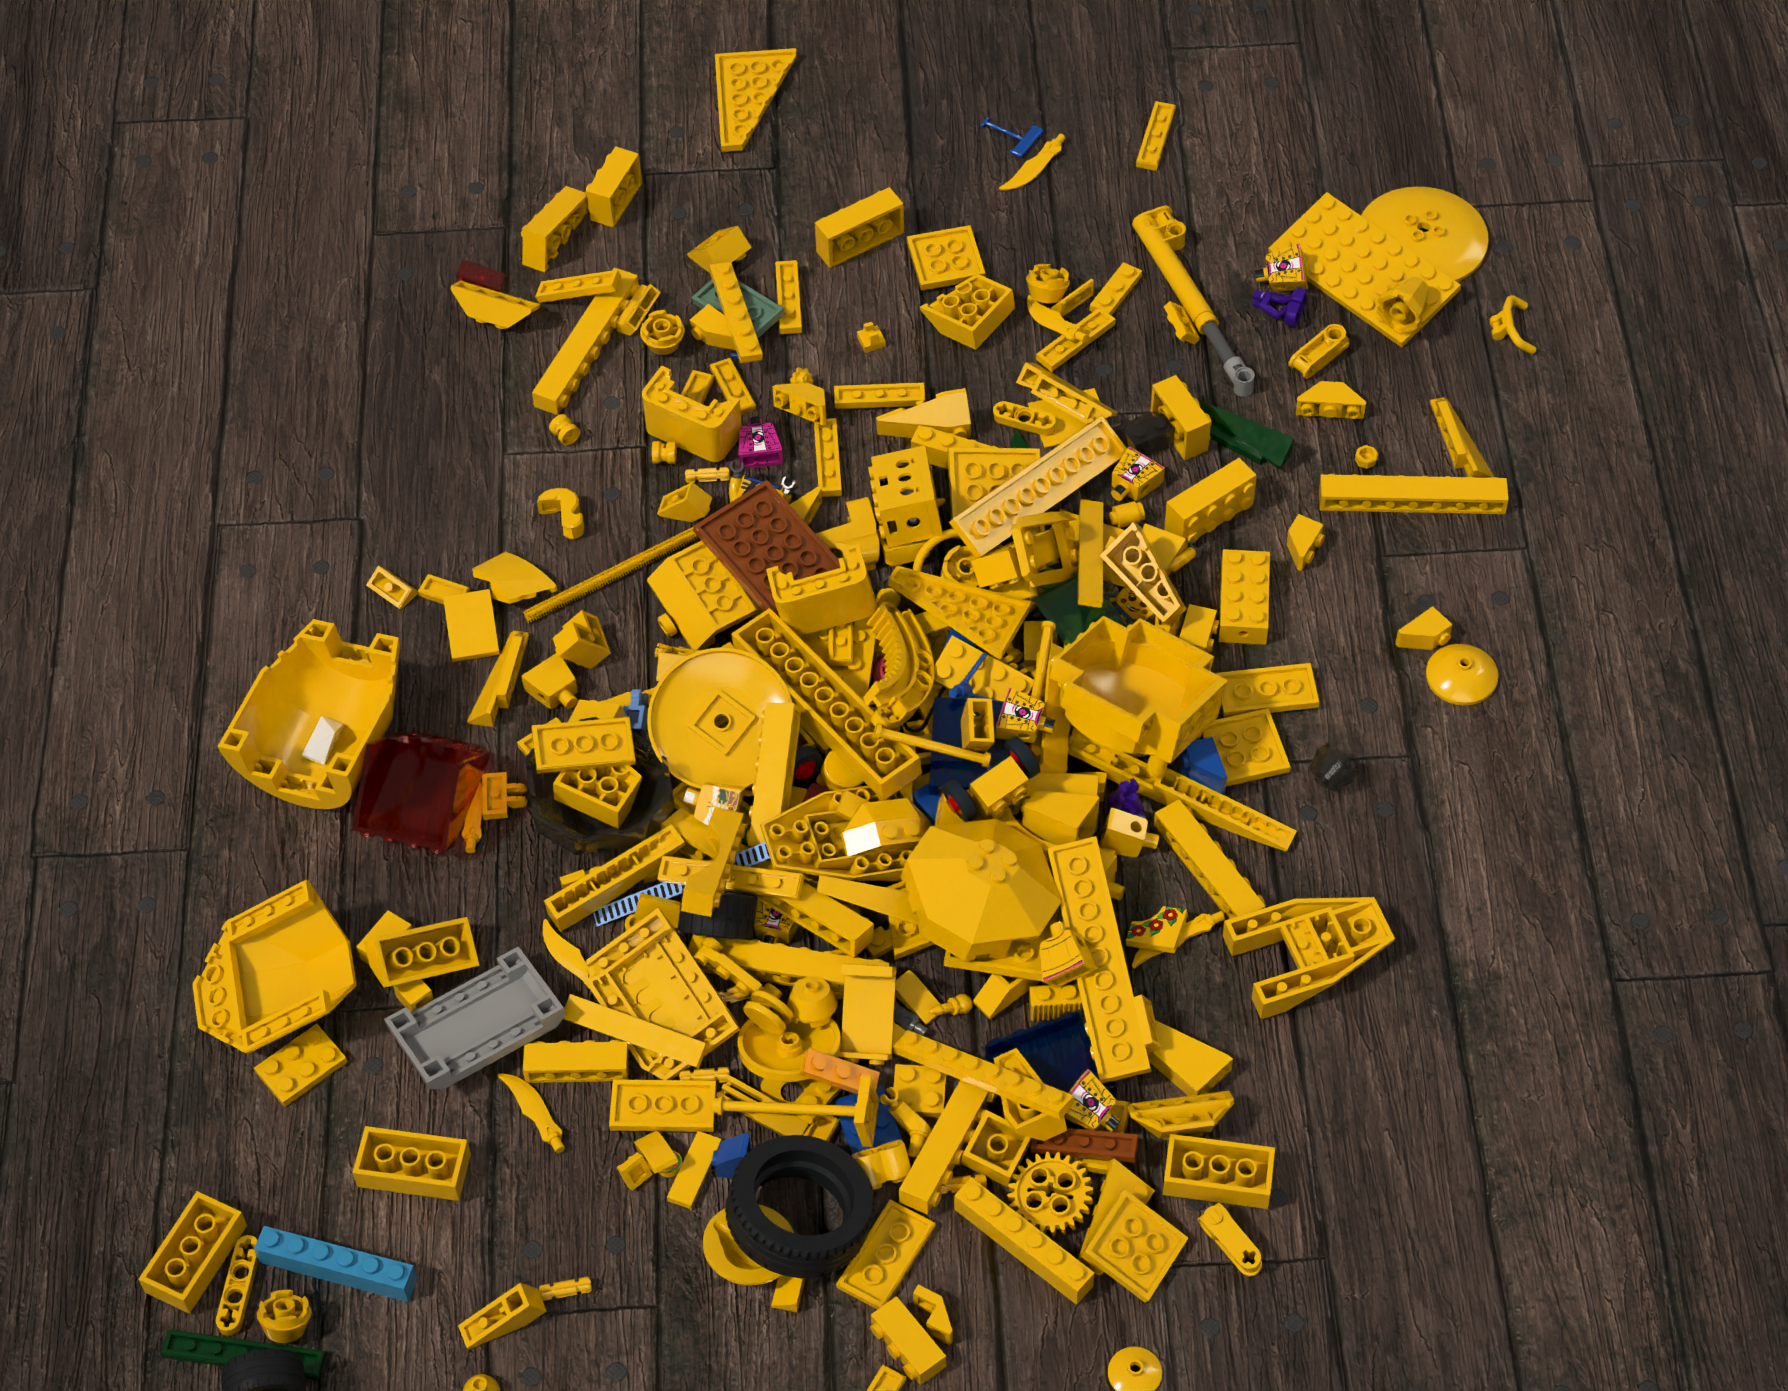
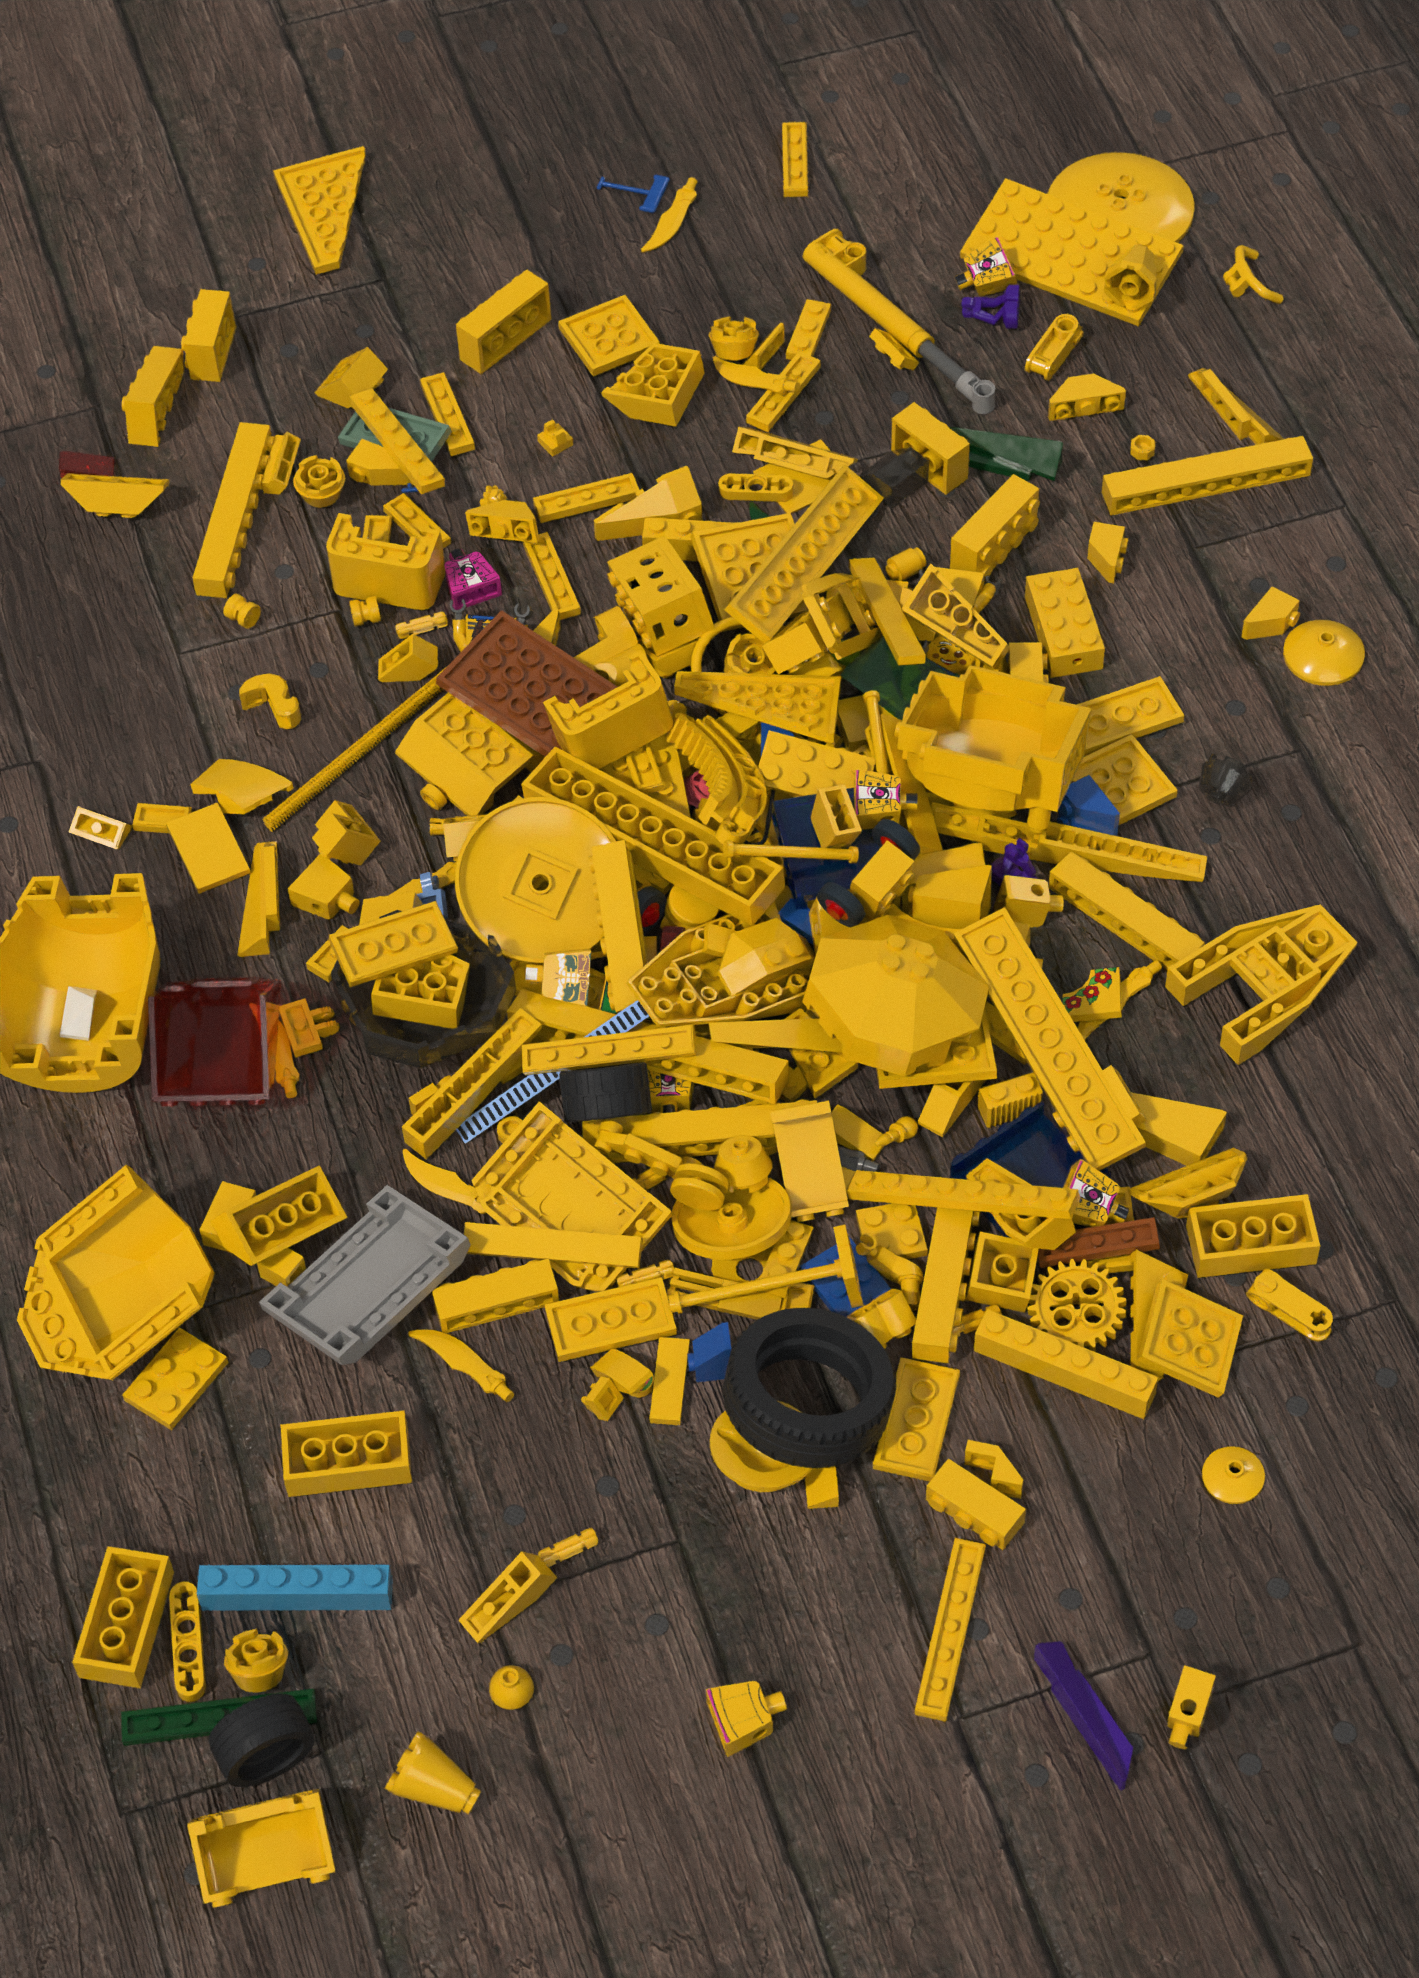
camera: 15 degrees left, 0 degrees up
(578, 286) = (206, 451): yellow plate -> none
(649, 903) = (522, 1103): yellow tile -> none
(706, 887) = (595, 1061): yellow arch -> none
(835, 1071) = (798, 1232): light orange plate -> none
(964, 689) = (803, 784): blue plant -> none
(1064, 956) = (1013, 1044): yellow torso -> none
(1135, 476) = (901, 521): yellow torso -> none

